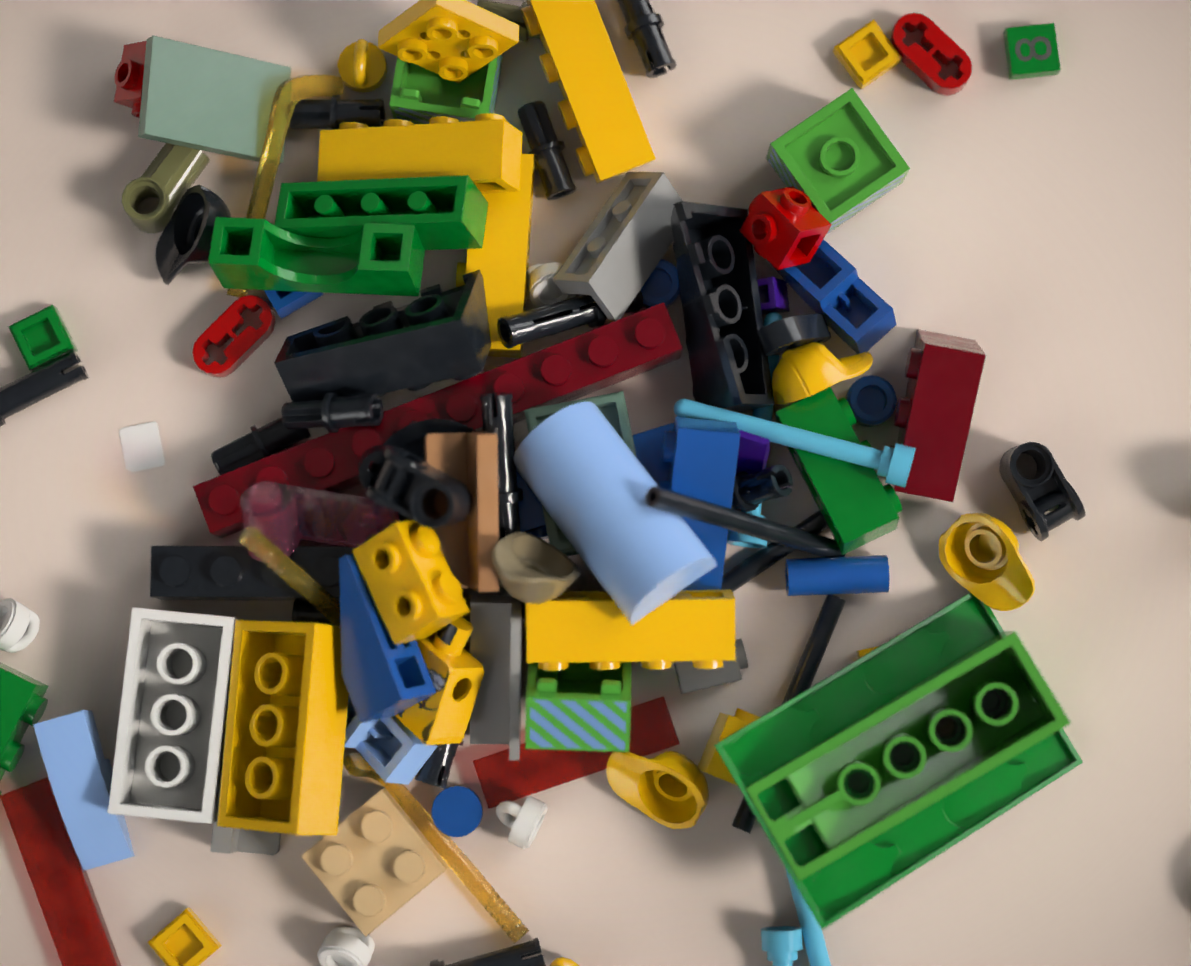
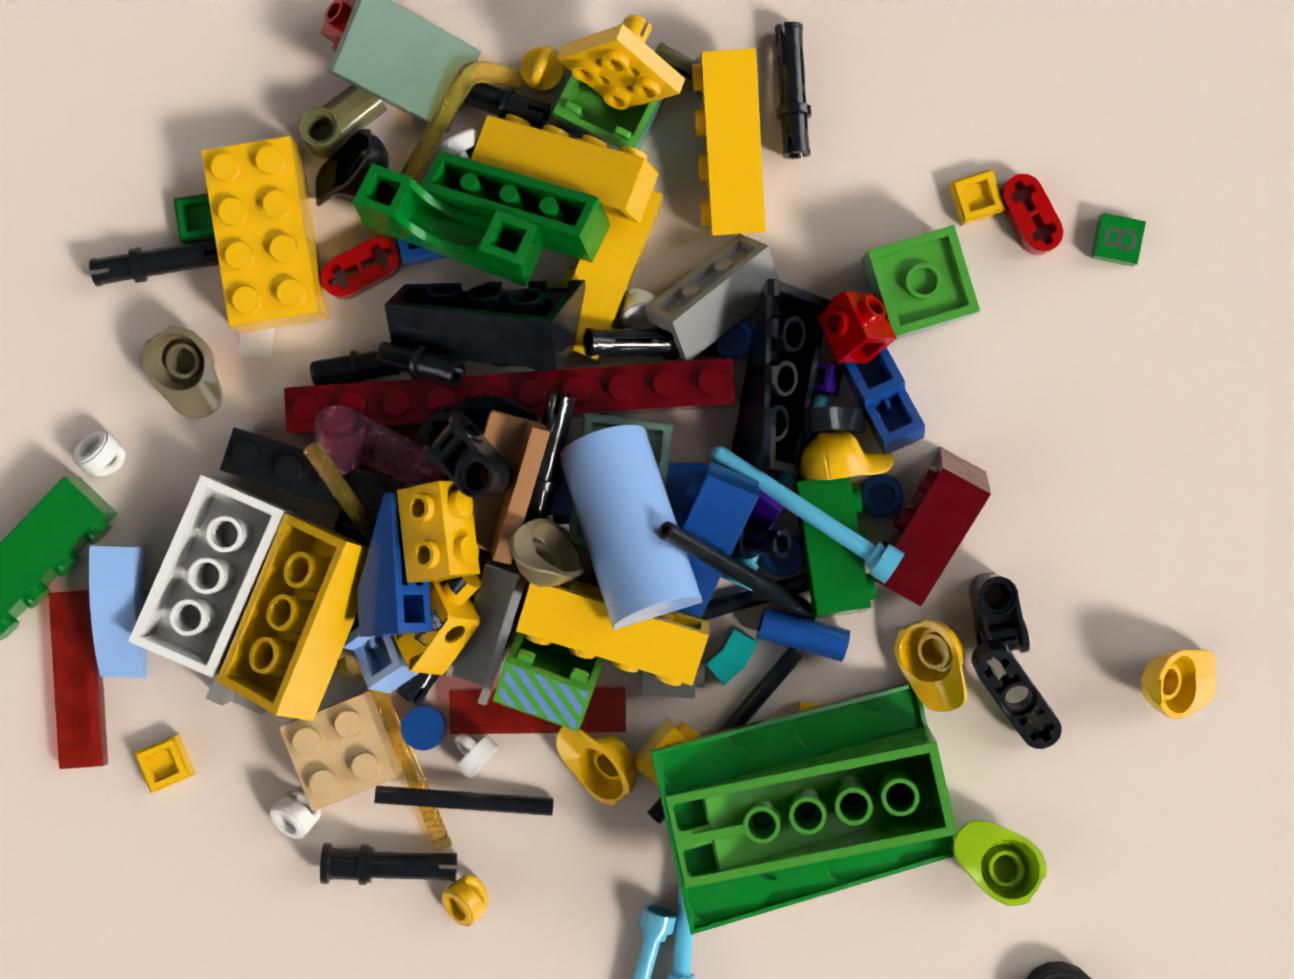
camera: 15 degrees right, 5 degrees up
(77, 506) = (183, 371): none -> dark tan piece
(120, 333) = (264, 234): none -> yellow brick
(302, 168) = (462, 143): none -> white tile
(527, 876) = (463, 800): none -> black bar
(546, 150) = (675, 192): black axle -> none
(768, 624) = (731, 656): none -> teal piece
(791, 507) = (786, 566): none -> blue tile
(1108, 564) = (1014, 677): none -> black beam
(1131, 750) = (1000, 861): none -> lime piece

